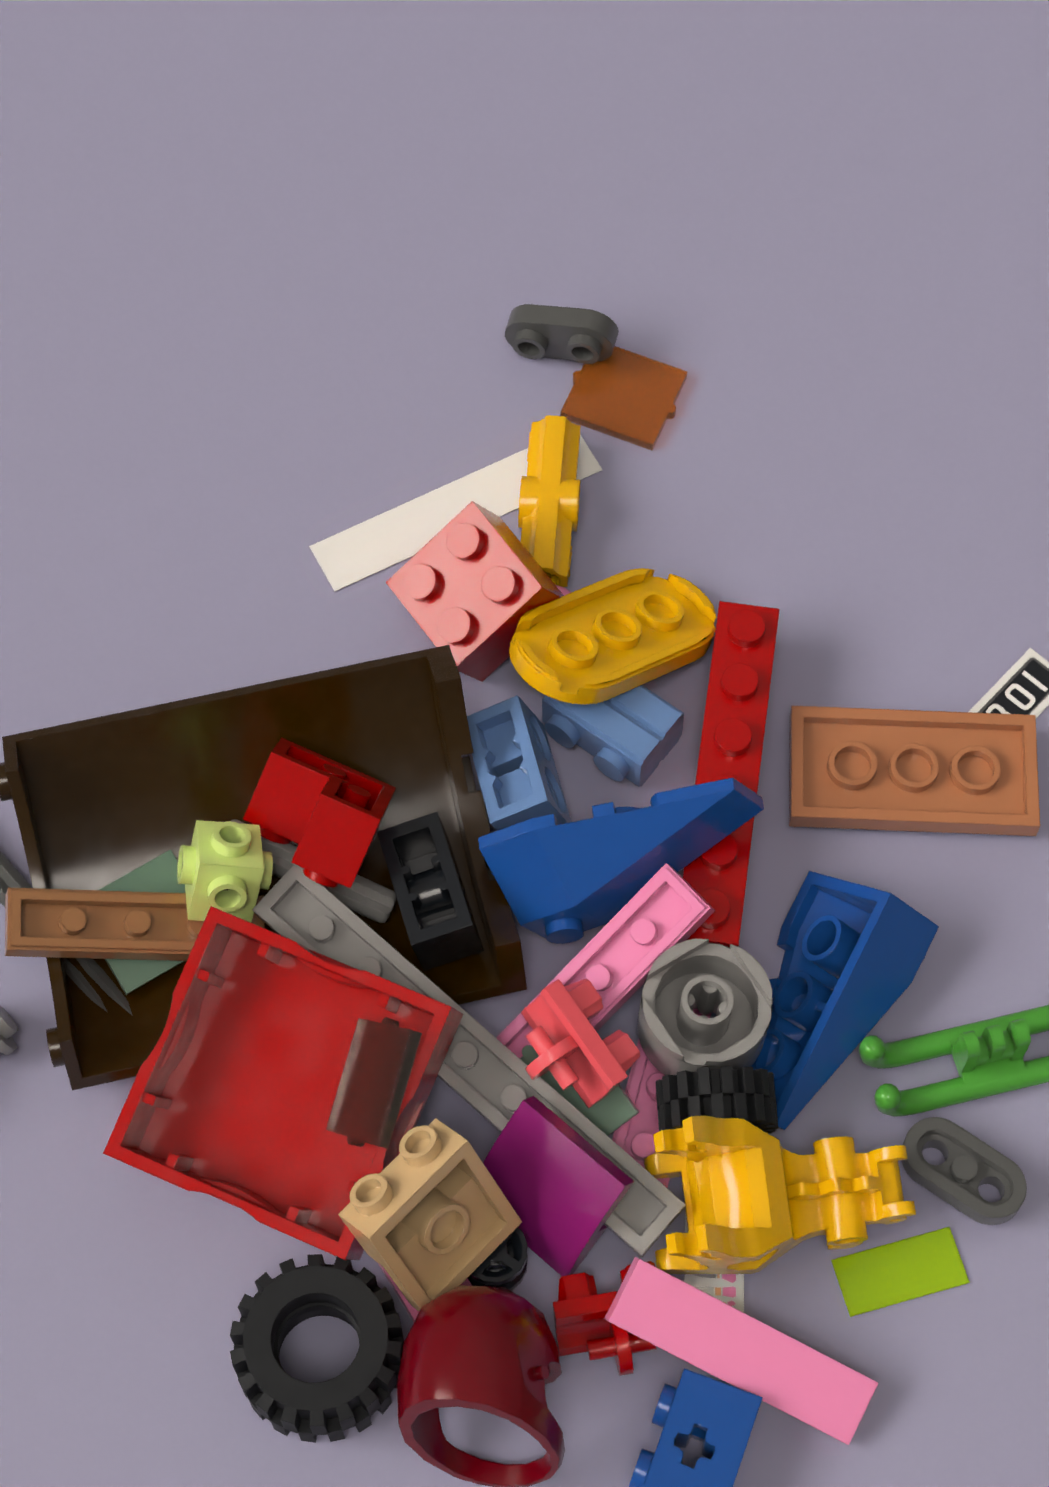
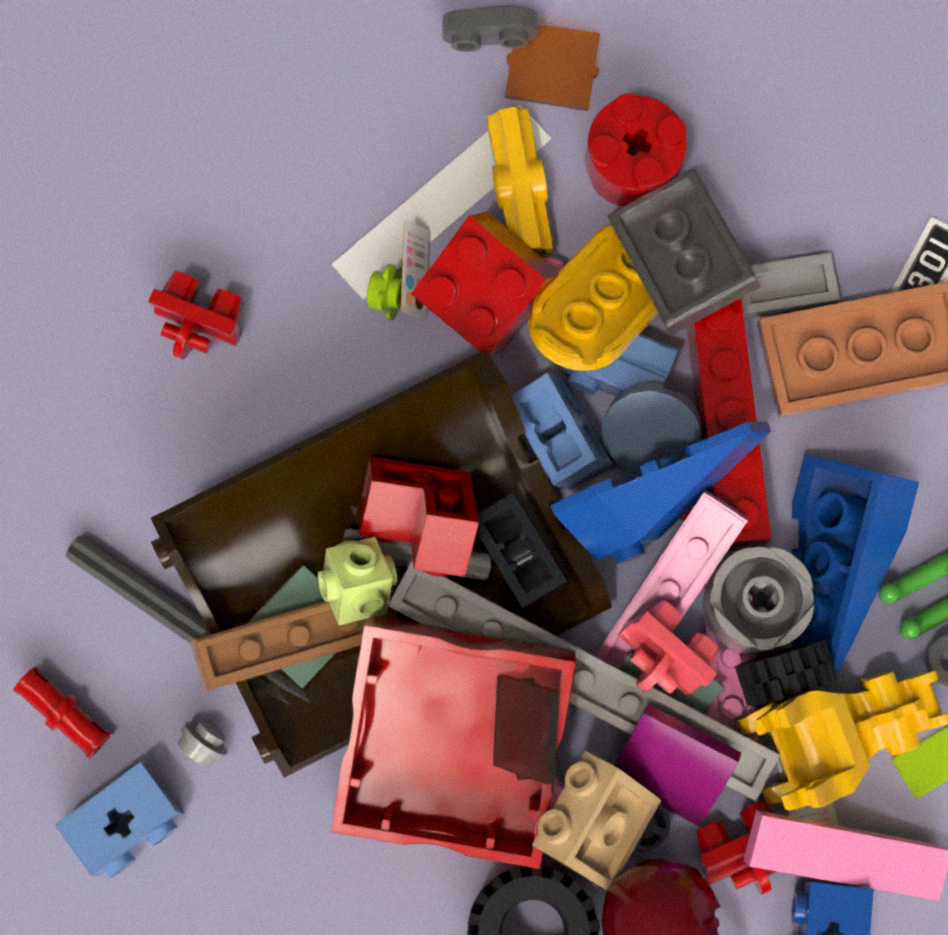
camera: 15 degrees left, 15 degrees up
(129, 567) = (177, 305): none -> red hips
(361, 582) = (385, 291): none -> lime plate
(406, 541) = (413, 267): none -> white sticker
(622, 772) = (649, 426): none -> sand blue tile
(692, 494) = (629, 124): none -> red brick
(715, 601) = (683, 251): none -> flat silver tile
(834, 679) = (792, 286): none -> light grey tile

